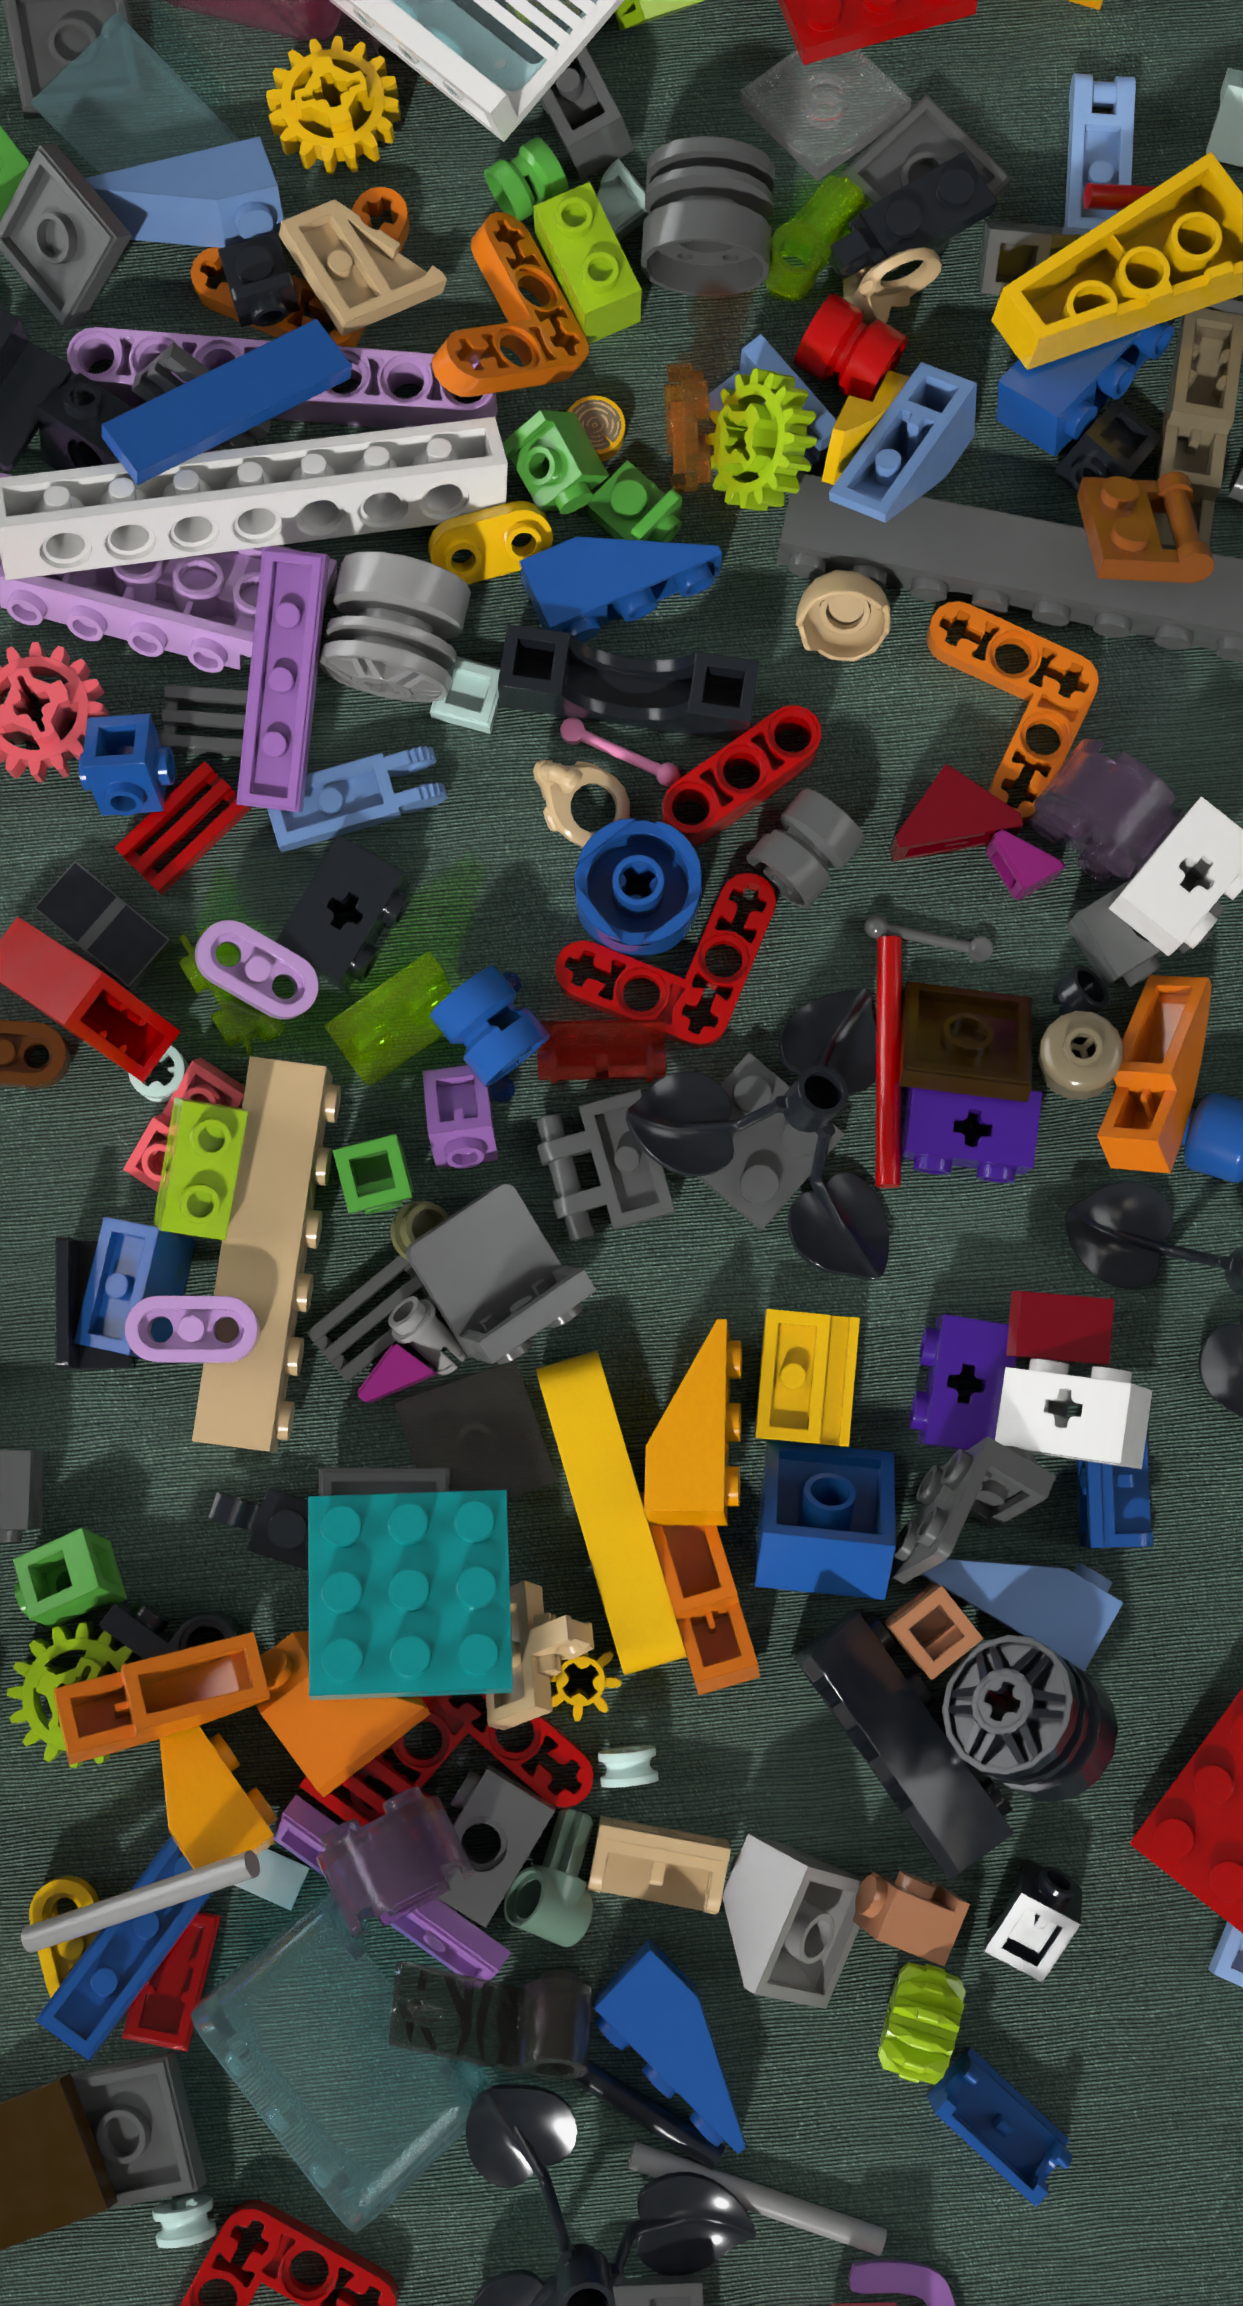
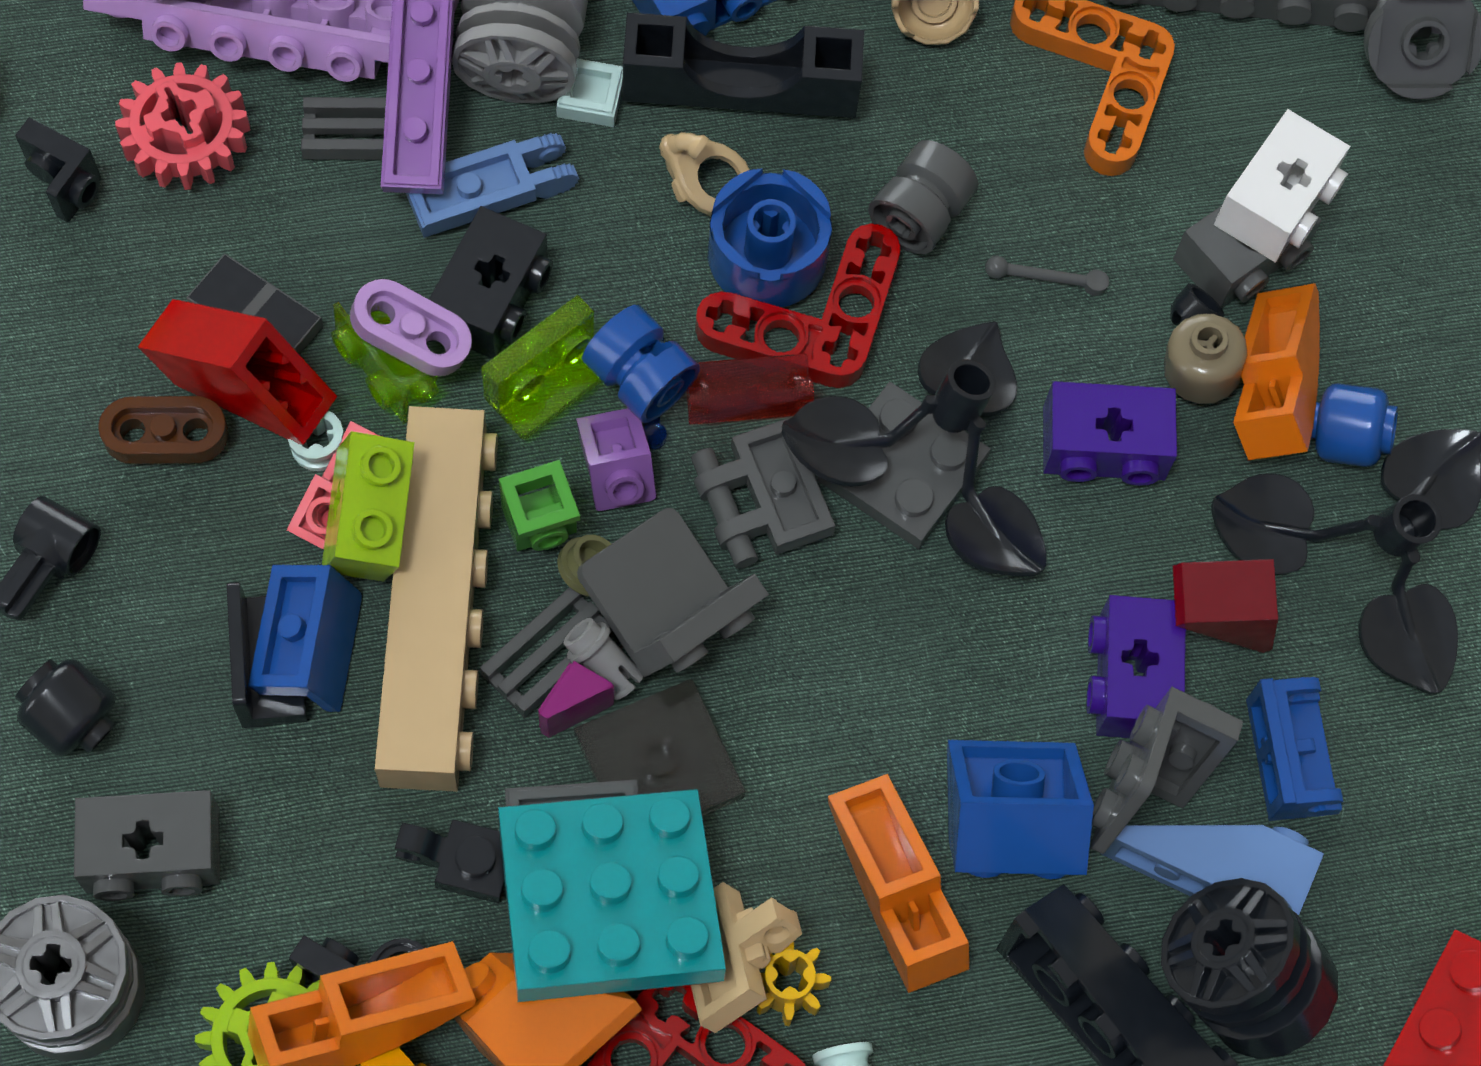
camera: 10 degrees left, 15 degrees down
(47, 1570) = (250, 921): bright green brick -> none
(126, 764) = (271, 160): blue brick -> none
(173, 804) = (311, 207): red tile -> none
(194, 1329) = (371, 649): lavender plate -> none
(574, 732) = (693, 120): bright pink hinge -> none
(610, 1513) = (803, 818): yellow beam -> none
(689, 1450) = (875, 736): light orange slope -> none
(753, 750) = (865, 120): red beam -> none
(807, 1377) = (981, 675): yellow plate -> none
(888, 1062) = (1024, 384): red bar -> none
(932, 1630) = (1139, 896): nougat brick -> none
(953, 818) = (1059, 166): dark red slope -> none
(966, 1042) = (1096, 353): dark brown tile -> none
(1021, 864) = (1126, 200): magenta slope -> none
(1106, 811) = (1197, 142): clear purple brick -> none
(1111, 1419) = (1279, 687): white brick -> none

